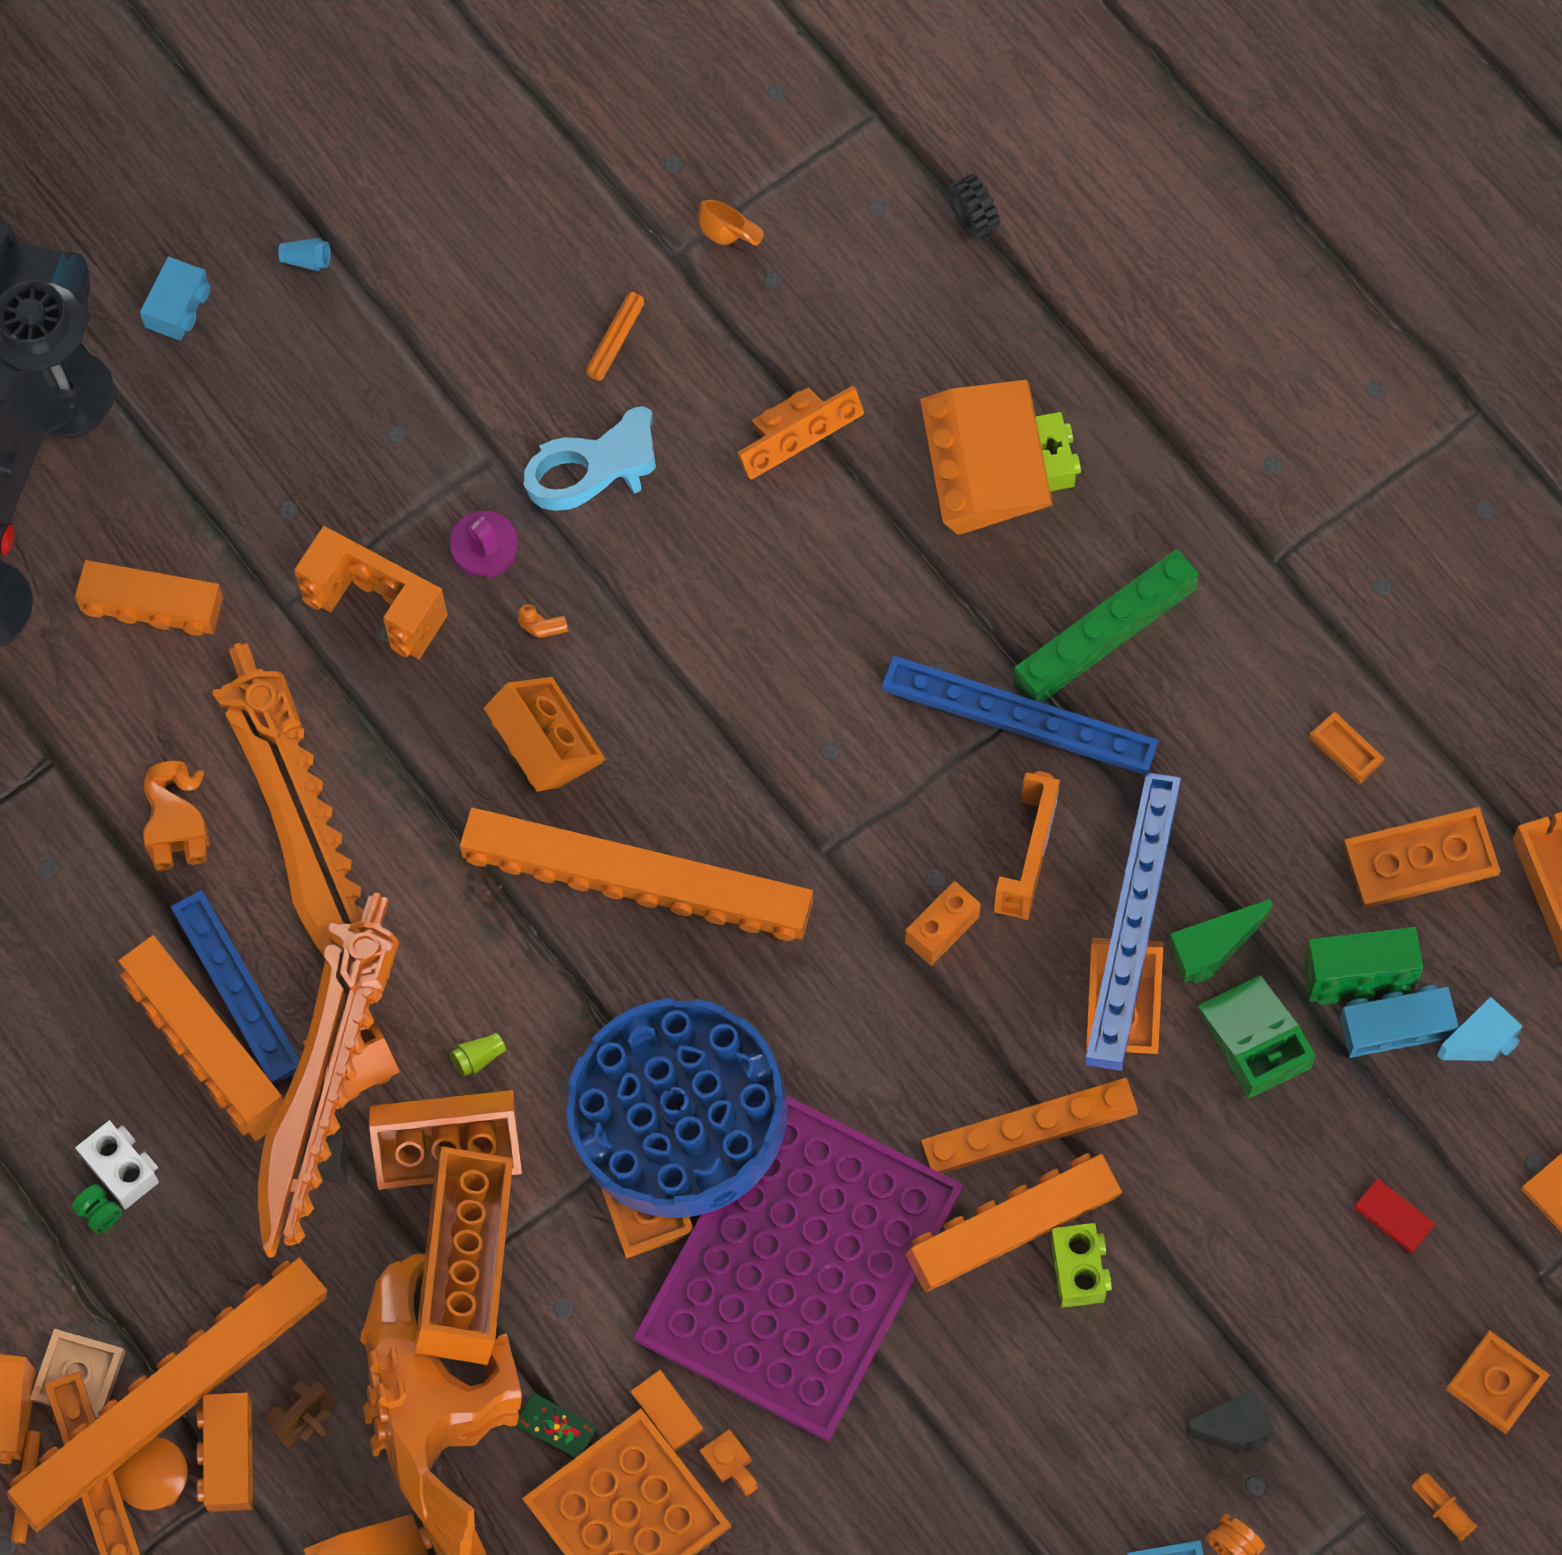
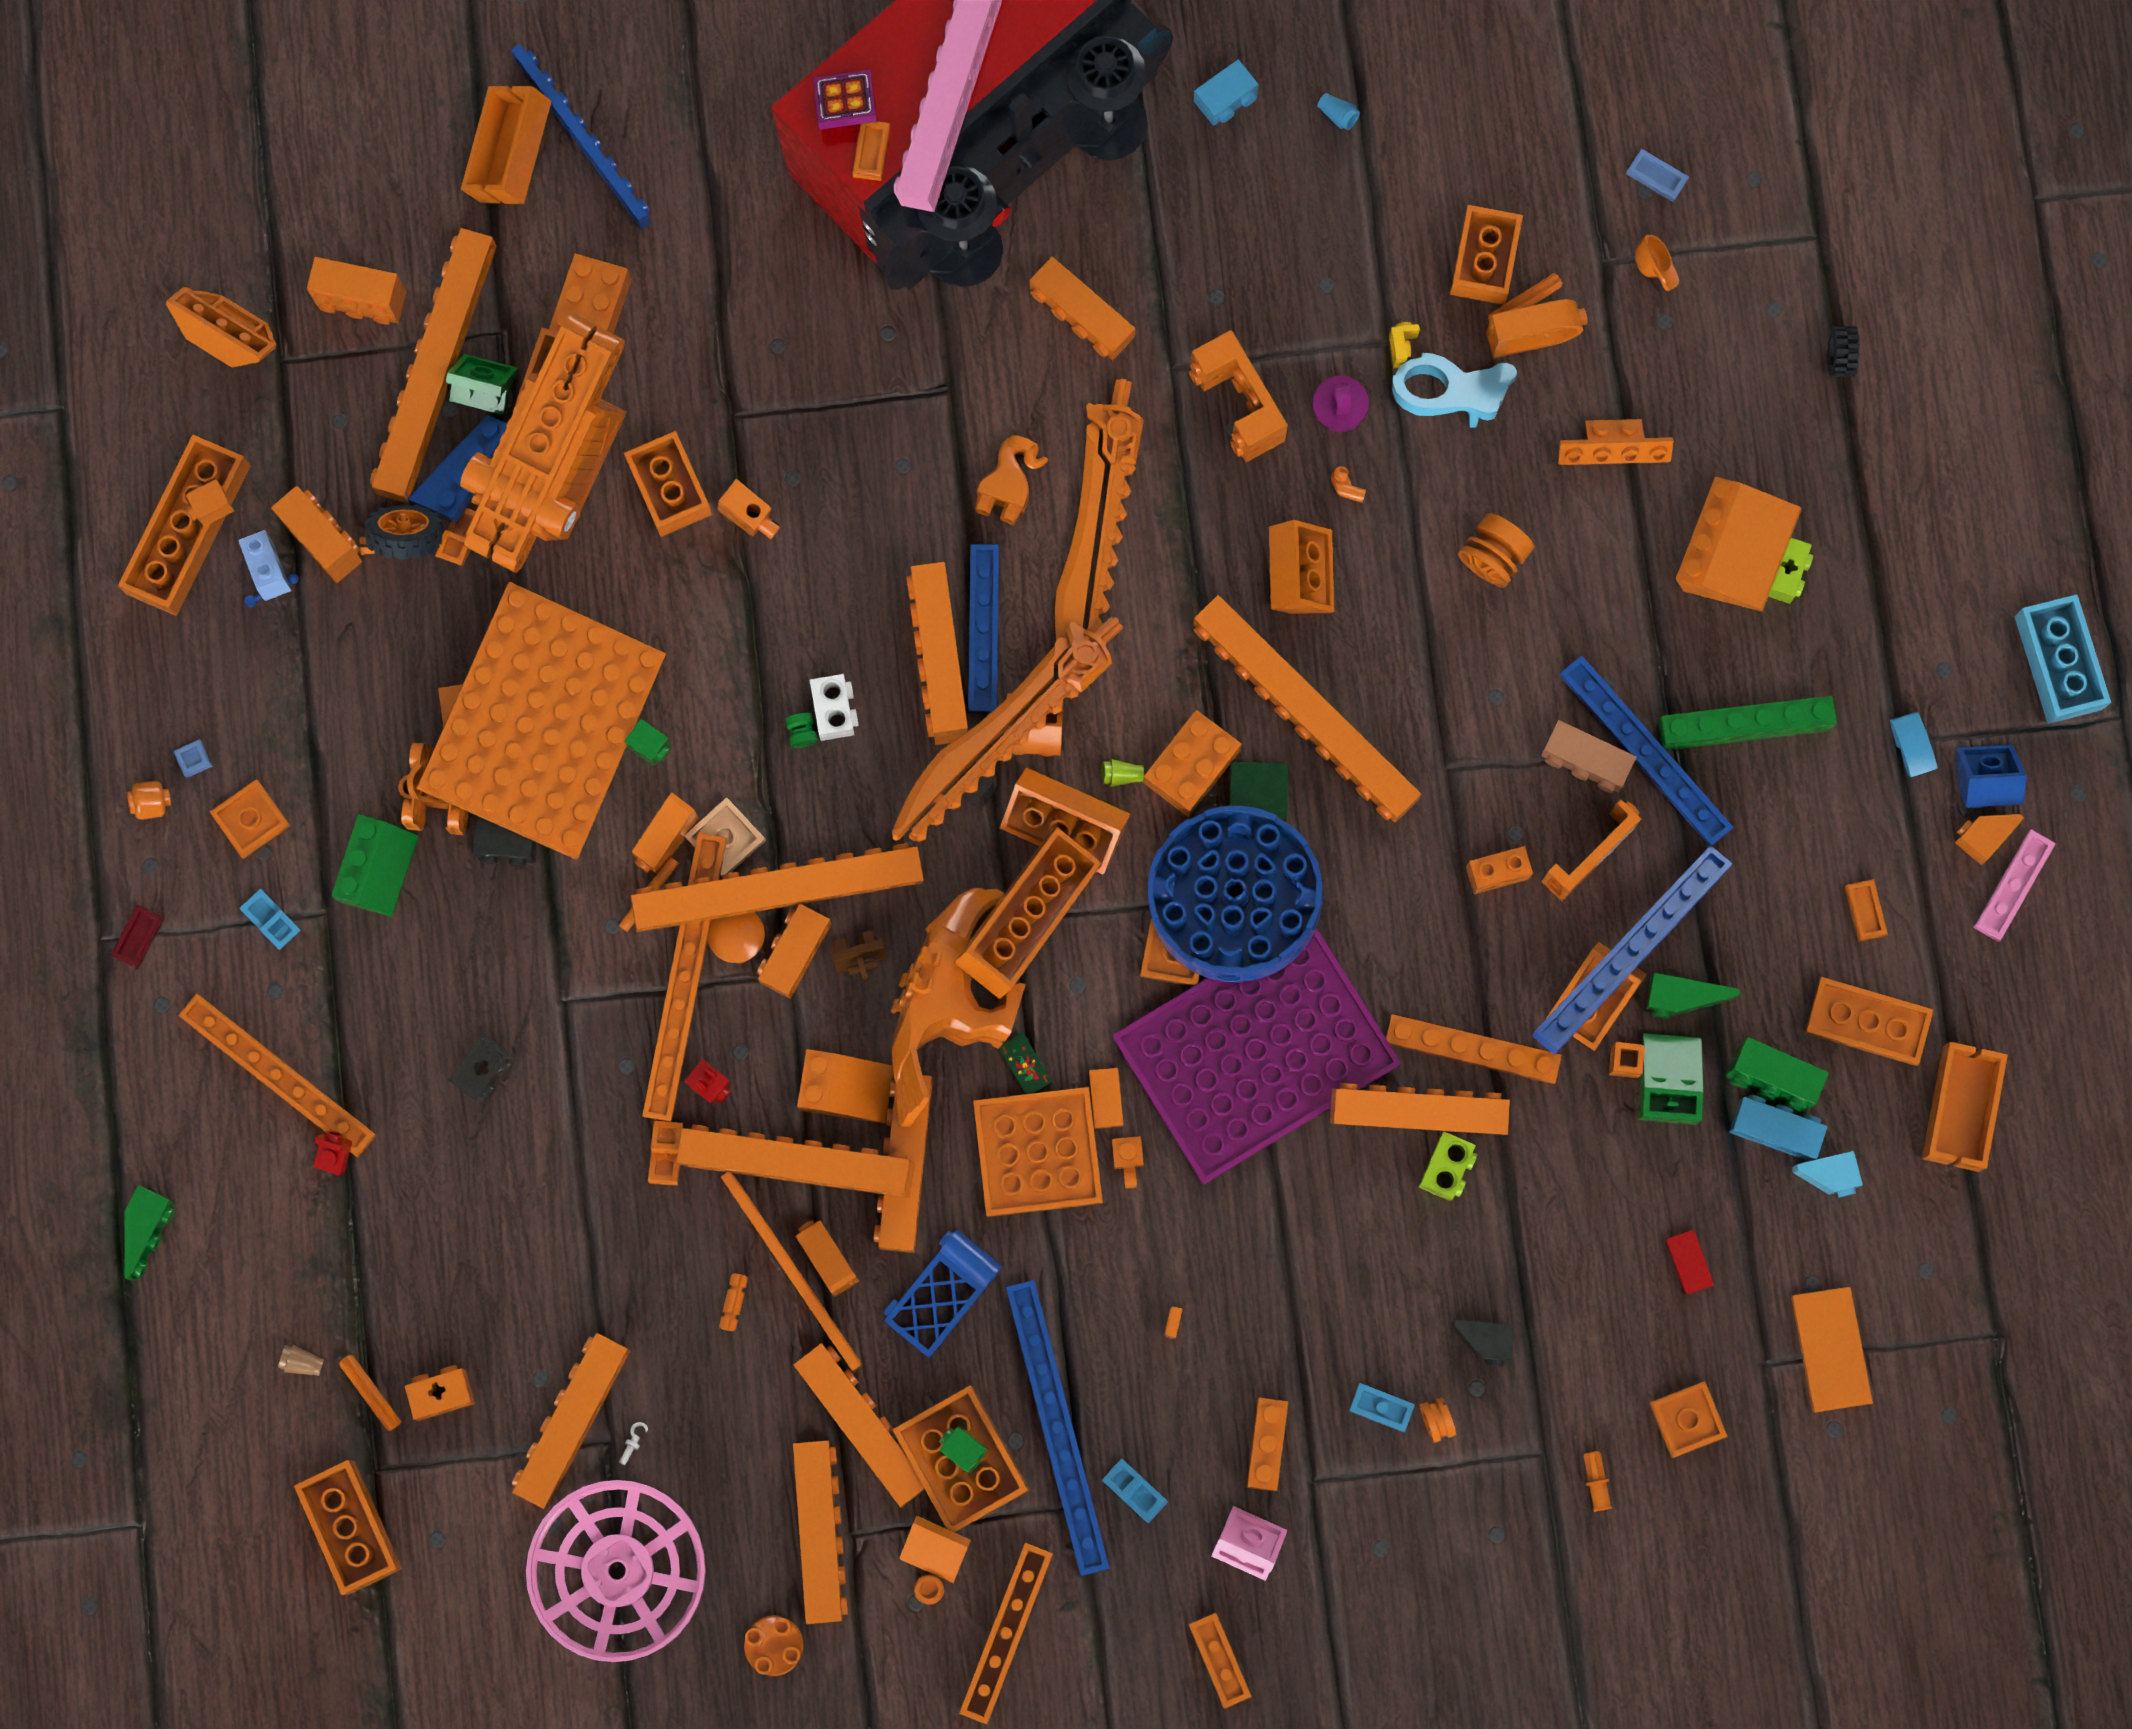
camera: 30 degrees right, 10 degrees up
(509, 447) = (1399, 344): none -> yellow bracket
(547, 310) = (1486, 254): none -> orange brick
(548, 999) = (1192, 763): none -> orange brick
(634, 981) = (1260, 786): none -> dark green tile
(641, 354) = (1535, 327): none -> orange window
(676, 141) = (1657, 175): none -> medium blue tile
(738, 597) = (1496, 550): none -> orange wheel
(964, 755) = (1588, 757): none -> nougat brick
(1198, 1041) = (1626, 1060): none -> orange brick
(1289, 552) = (1914, 744): none -> dark azure slope
(1384, 384) = (2062, 659): none -> medium azure brick
(1387, 540) = (1990, 776): none -> blue slope
(1419, 601) = (1986, 835): none -> orange slope
(1480, 637) = (2014, 885): none -> bright pink tile

